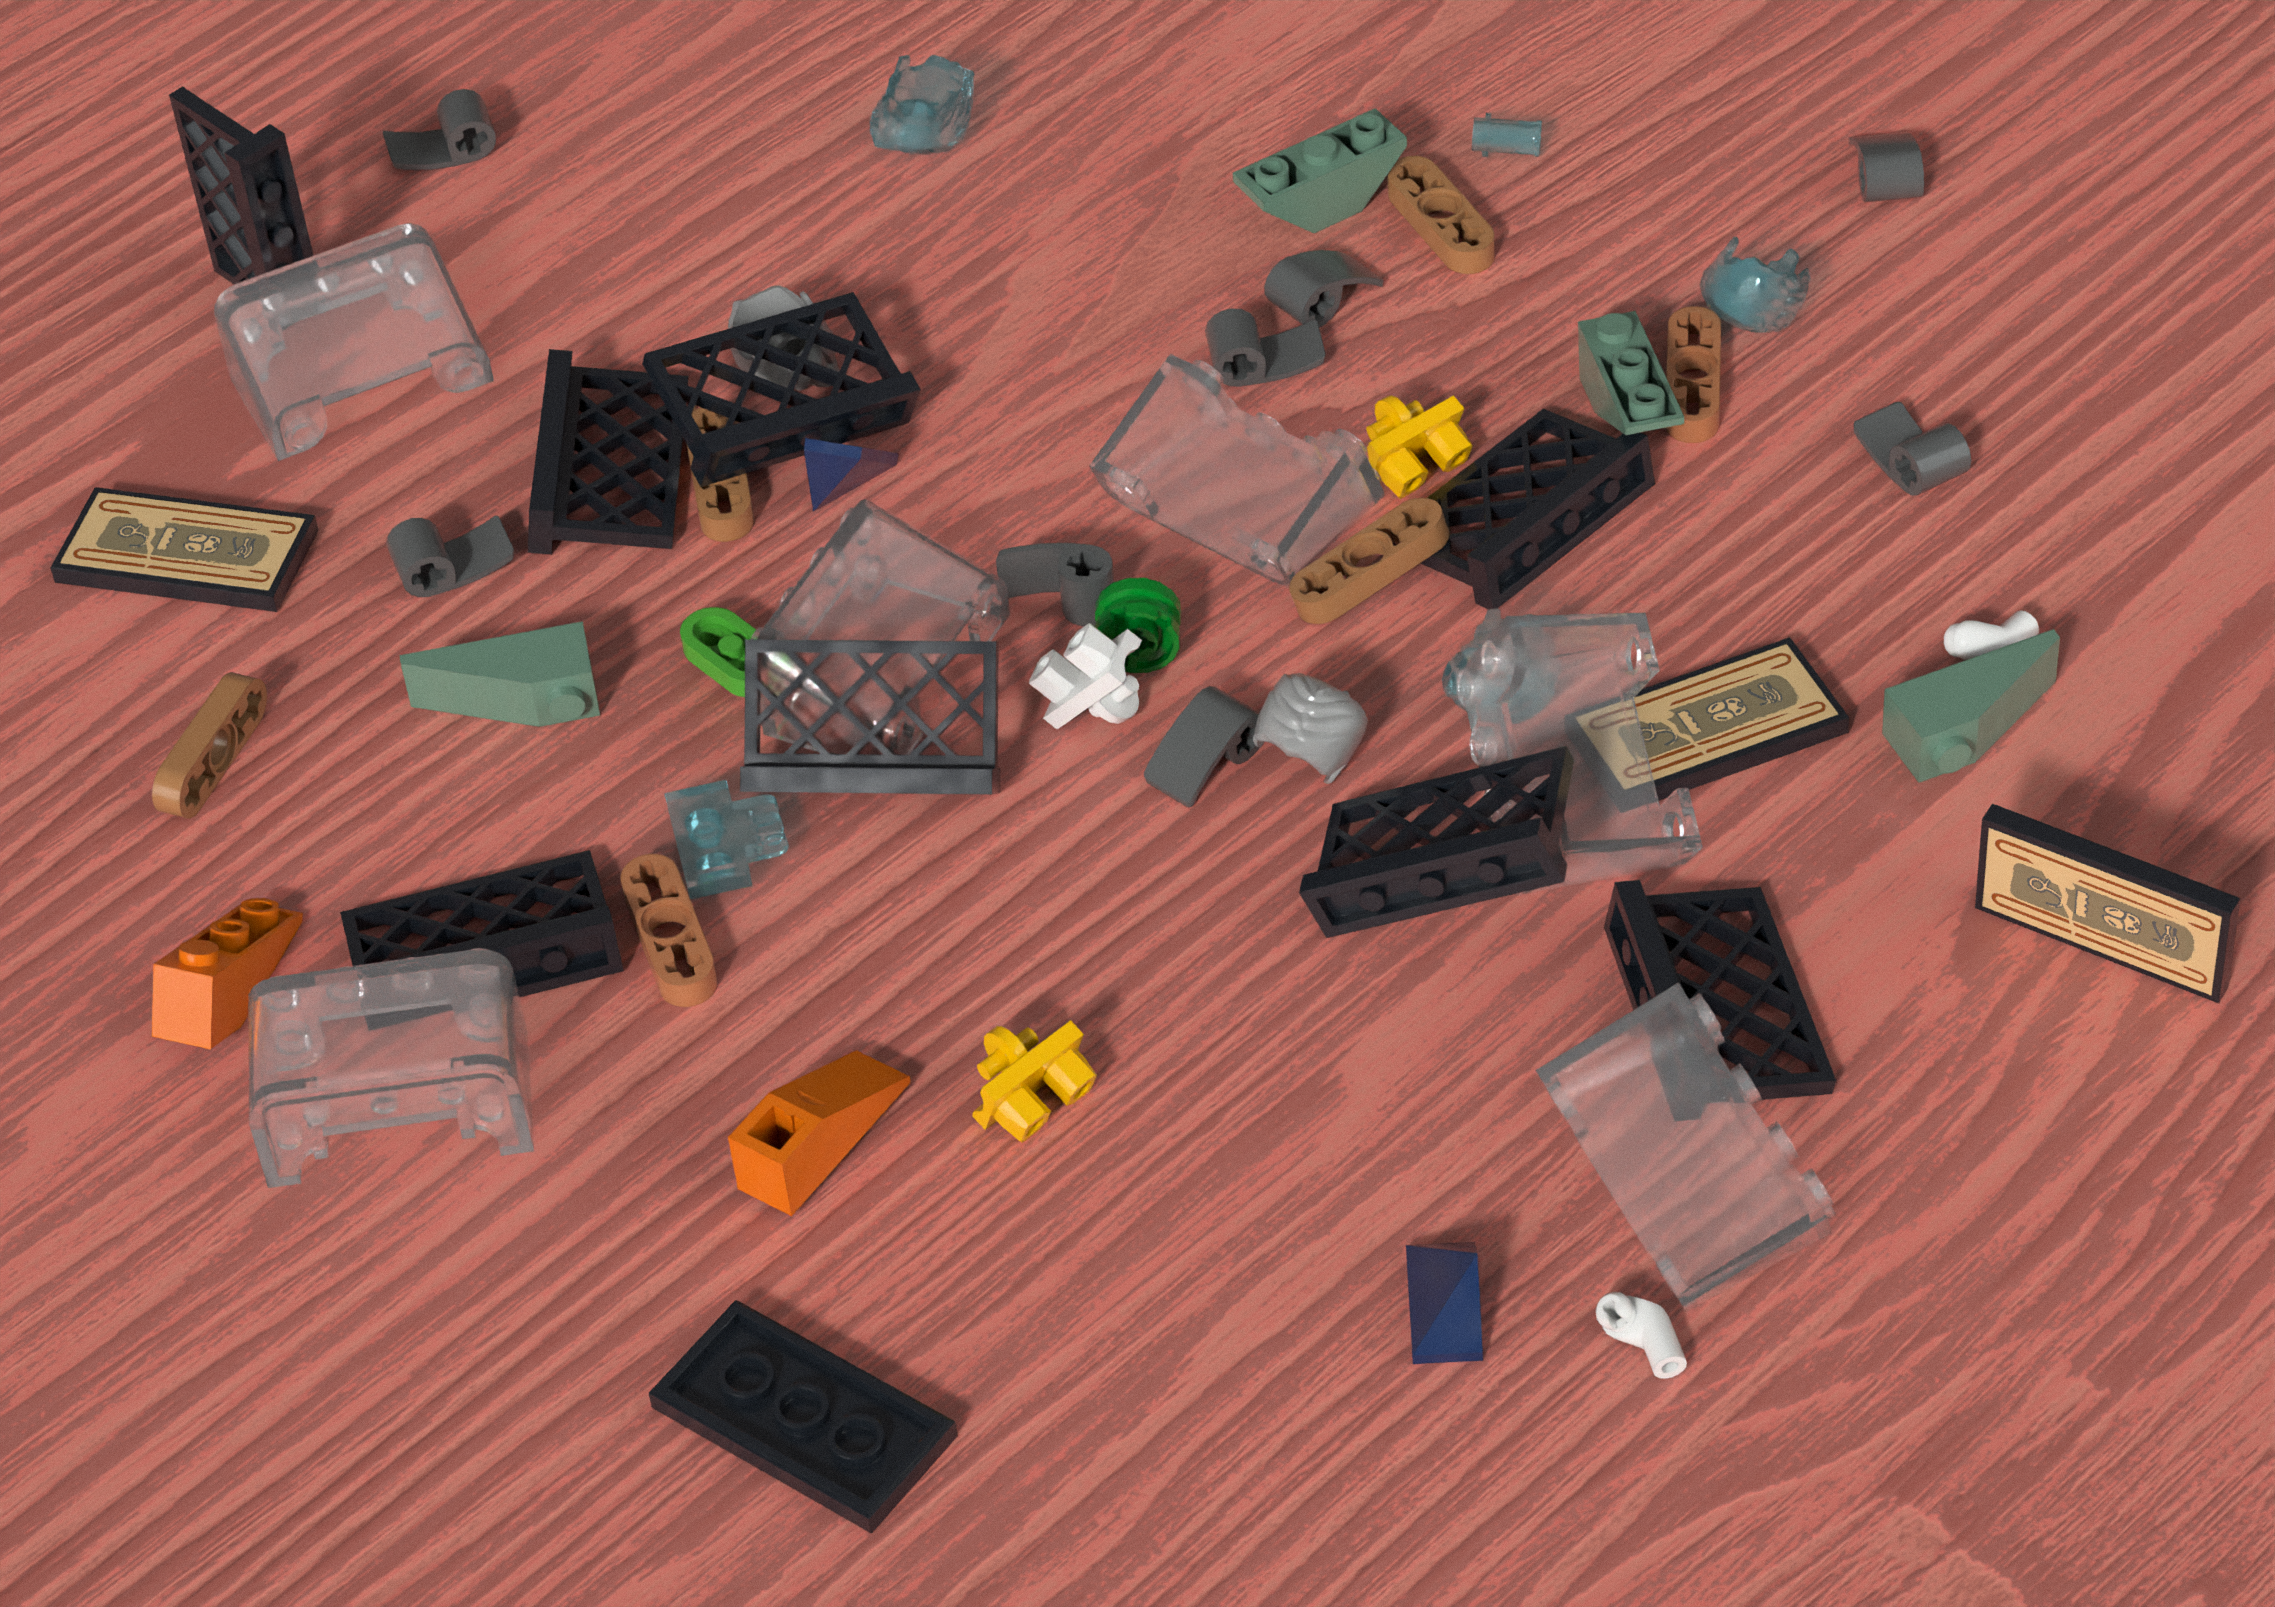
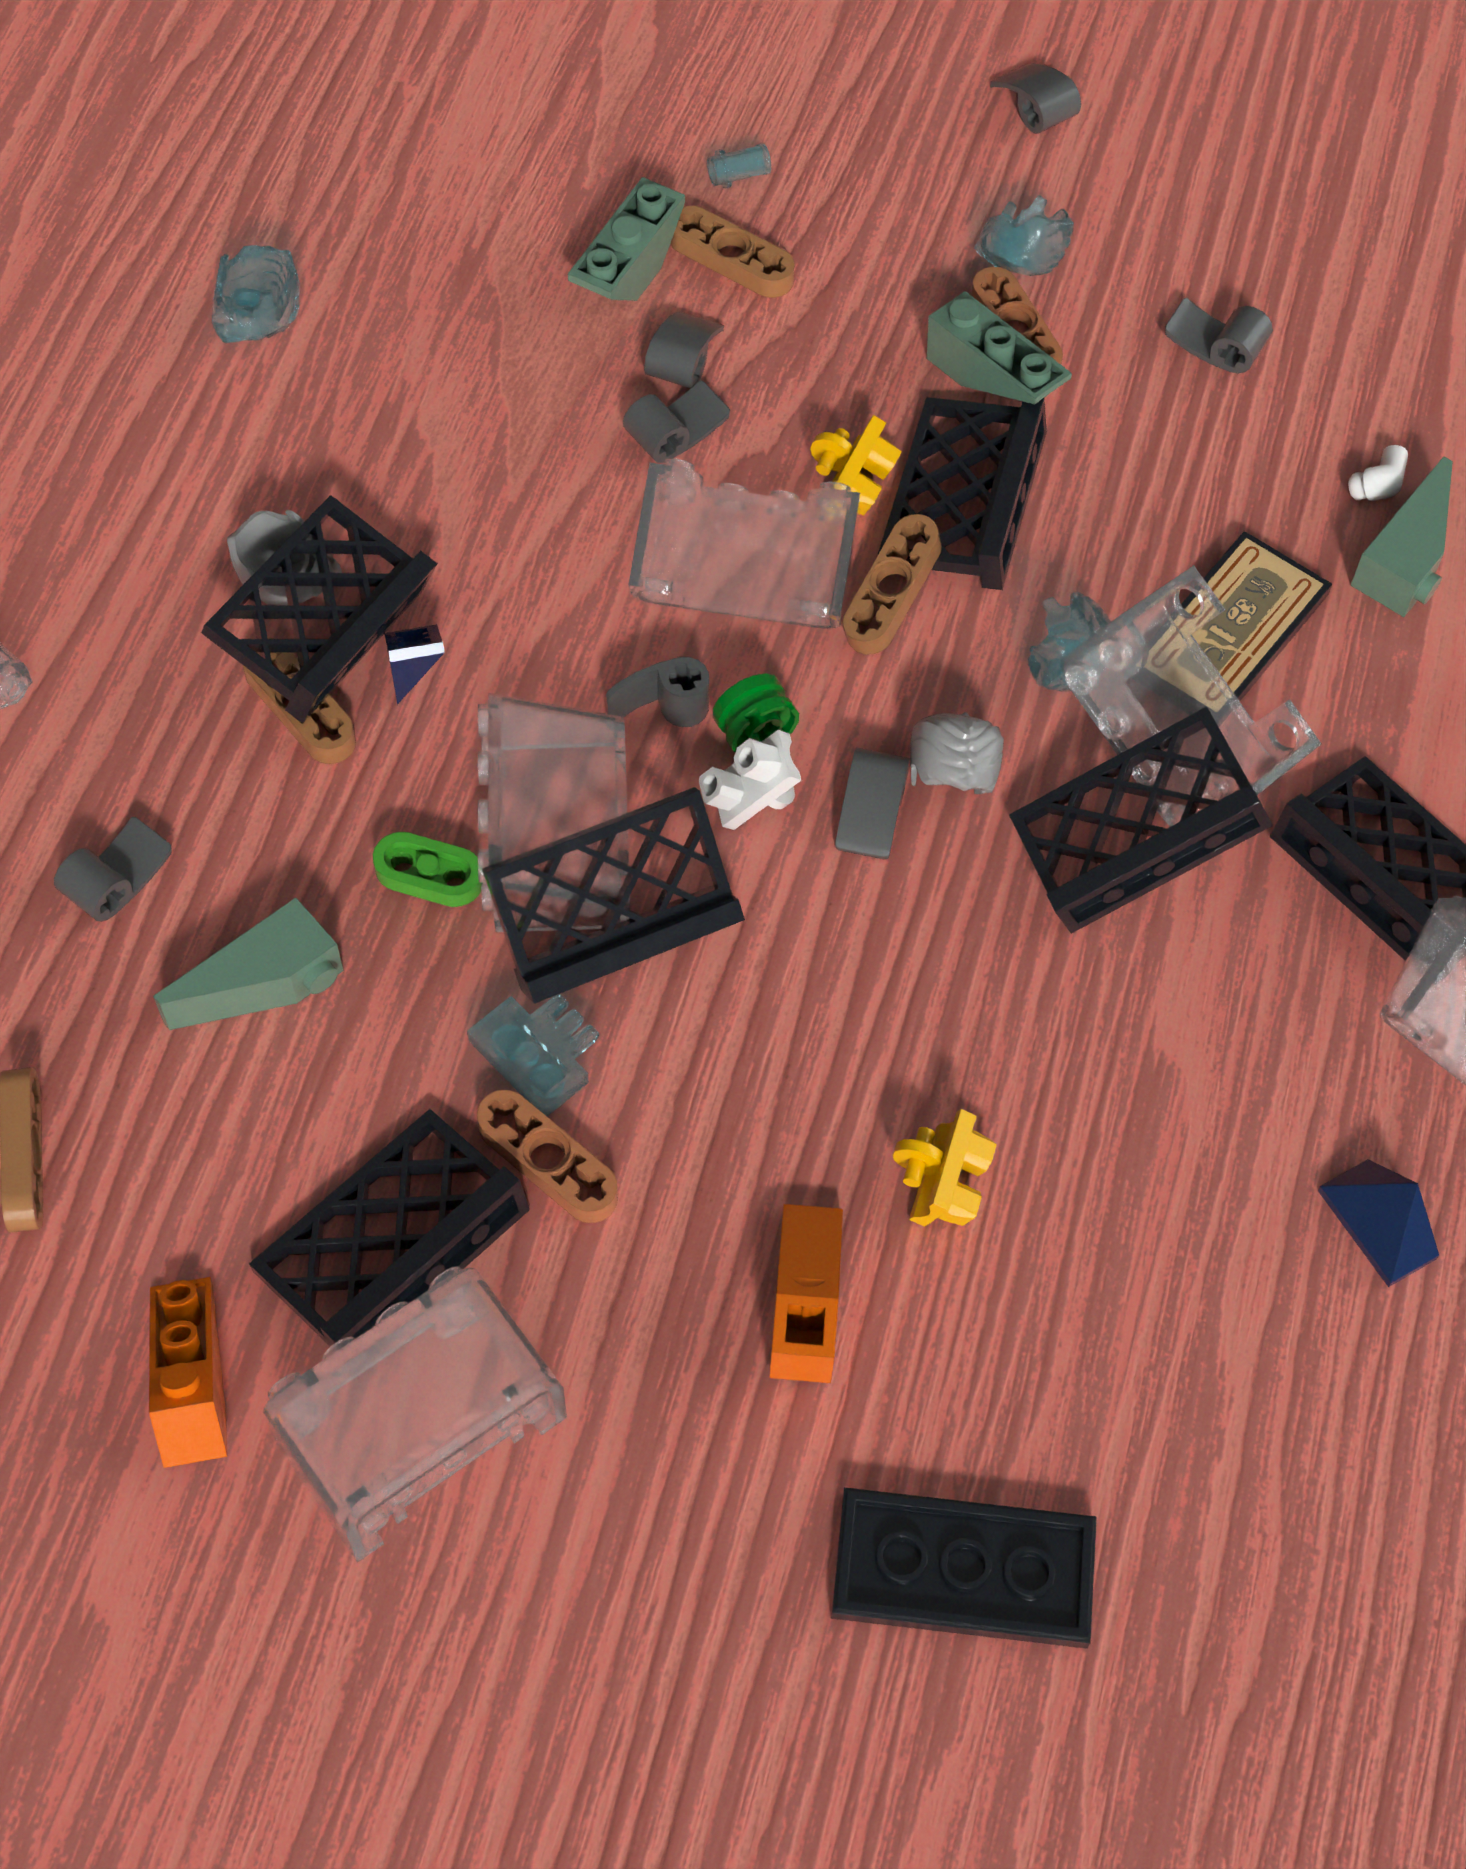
camera: 35 degrees left, 15 degrees up
(558, 462) = (154, 748): black fence -> none

